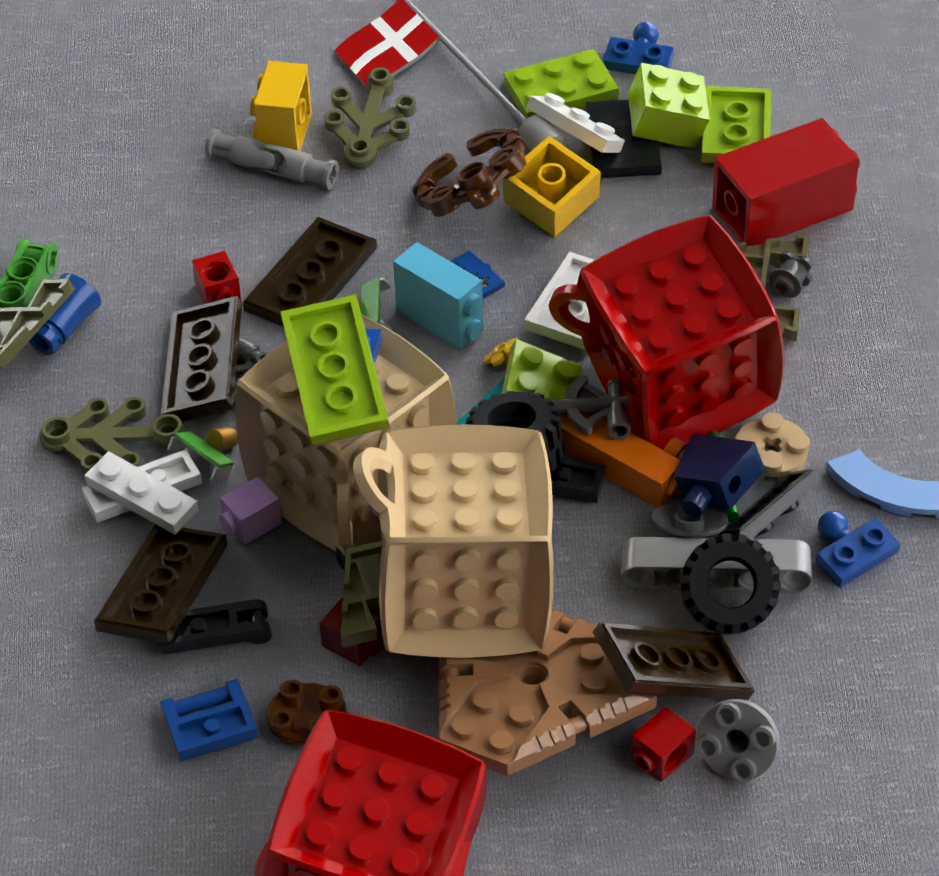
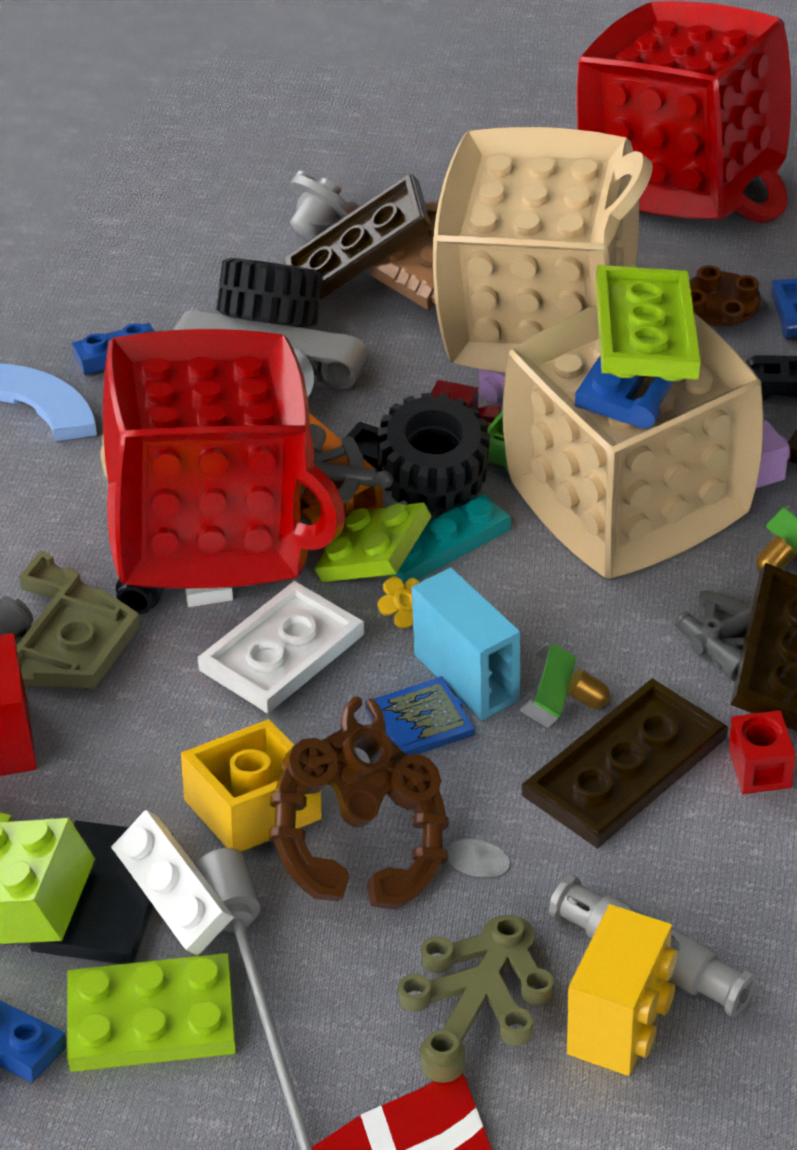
camera: 165 degrees left, 5 degrees down
(395, 204) = (477, 858): none -> clear sticker

